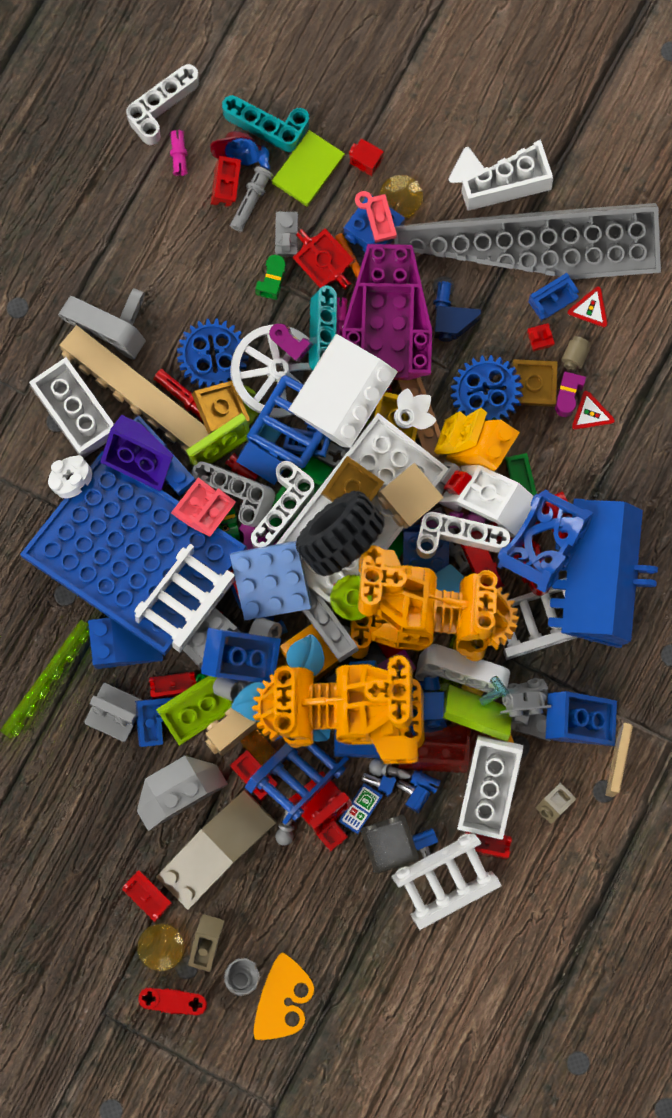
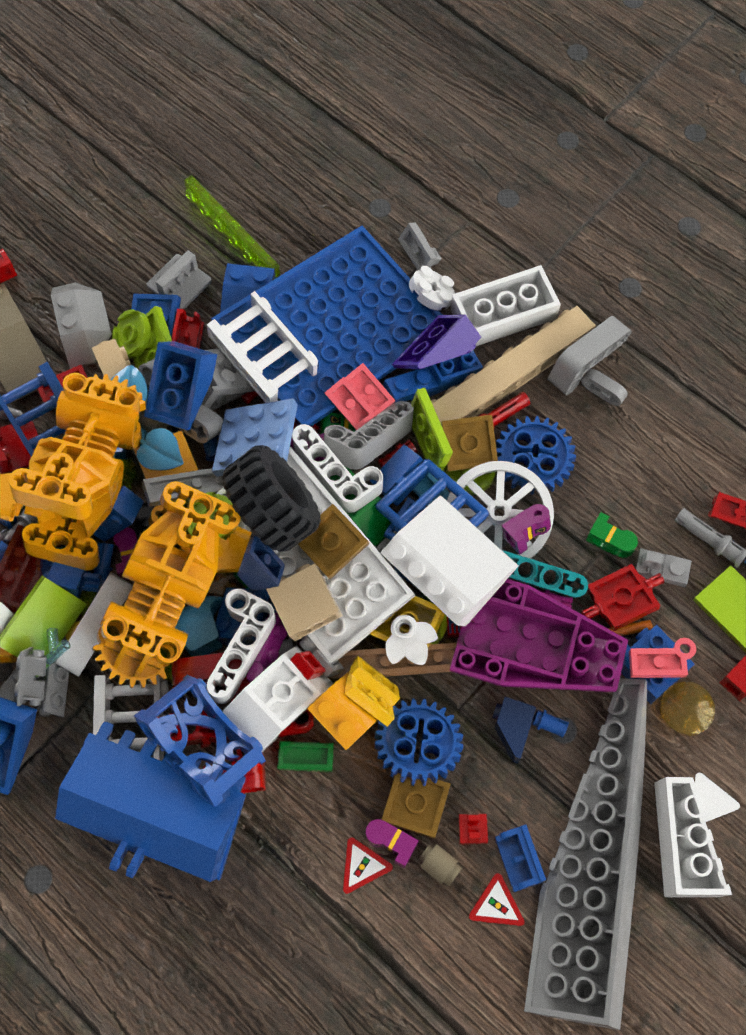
camera: 105 degrees right, 10 degrees down
(24, 503) = (418, 247): none -> light grey hinge
(184, 733) = (132, 332): none -> lime tile
(395, 534) = (260, 566): none -> dark blue slope

